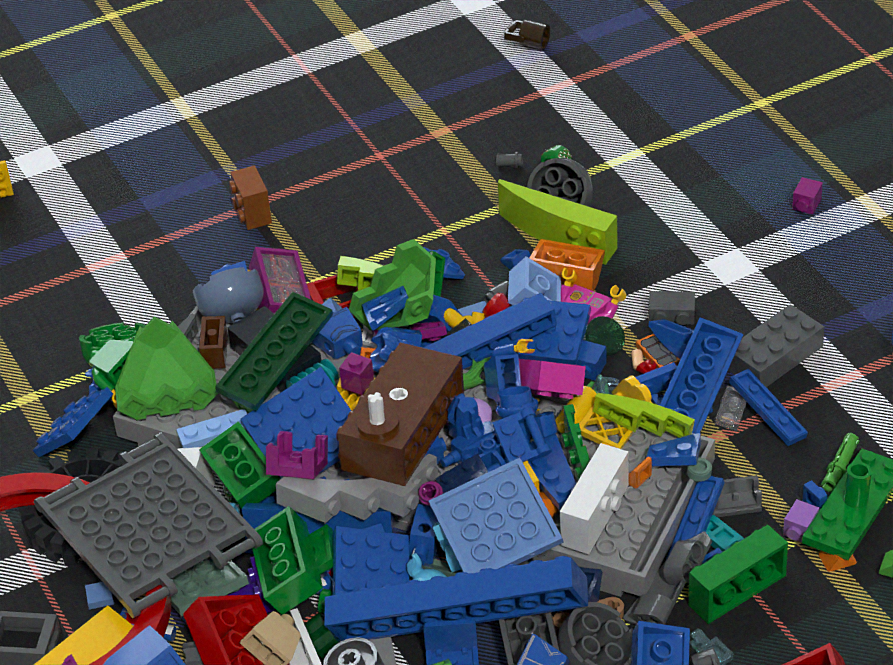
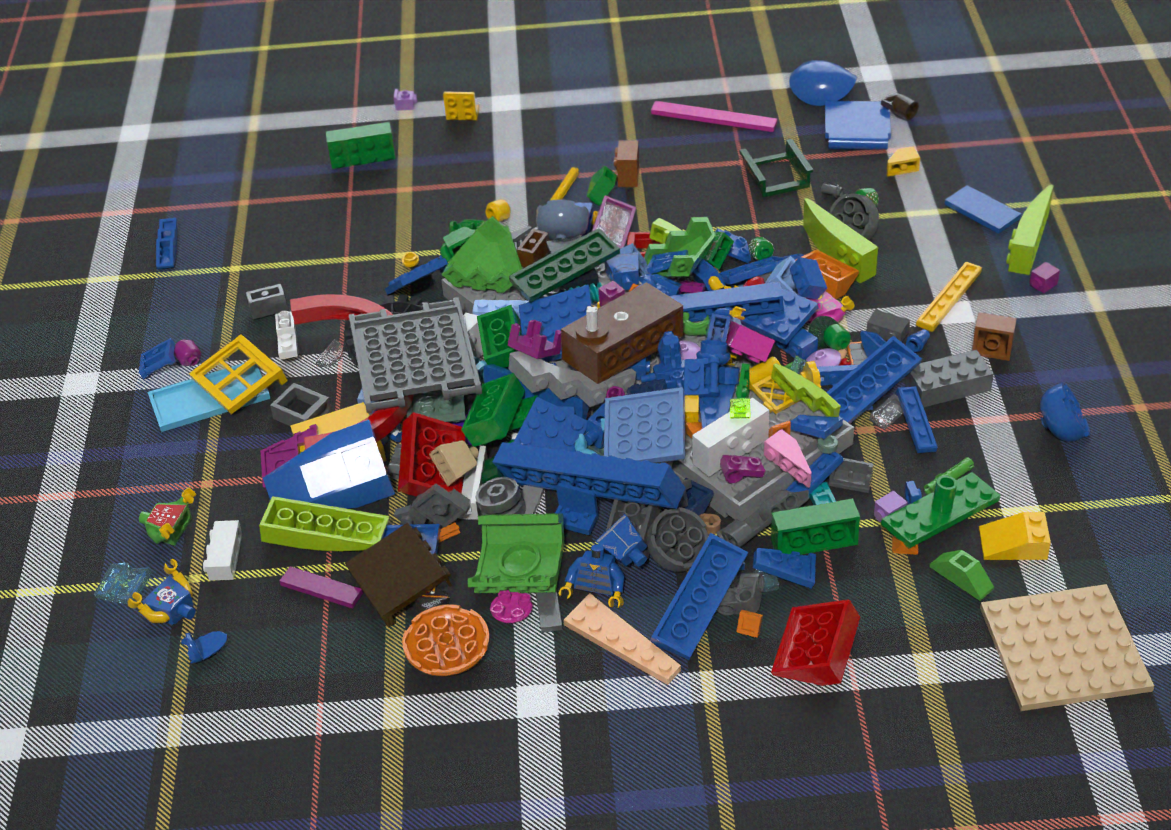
camera: 25 degrees right, 0 degrees up
(16, 558) = (331, 355): none -> clear tile
(43, 402) = (410, 259): none -> yellow plate
(120, 305) = (498, 209): none -> yellow head
(182, 259) = (566, 184): none -> yellow axle
(231, 234) = (601, 185): none -> green slope
(312, 107) = (714, 116): none -> tile
(419, 30) = (821, 82): none -> blue piece
(446, 134) = (795, 158): none -> dark green piece
(472, 257) = (761, 248): none -> green head
(481, 284) = (750, 270): none -> blue tile
(490, 71) = (857, 125): none -> piece
(560, 277) = (808, 278): none -> blue piece
(573, 101) = (903, 161): none -> yellow slope
(596, 461) = (739, 408): none -> clear neon green plate
(621, 530) = (736, 467): none -> magenta plate
(623, 367) = (825, 357): none -> lavender dish
(625, 338) = (837, 337): none -> green head
(668, 498) = (786, 453): none -> bright pink slope
(691, 134) = (982, 209): none -> tile
(714, 250) = (948, 296): none -> yellow tile
(714, 311) = (917, 340): none -> blue cone
(731, 628) = (790, 567): none -> blue wing
(767, 152) = (1029, 233): none -> lime slope
(798, 281) = (994, 336): none -> dark orange brick

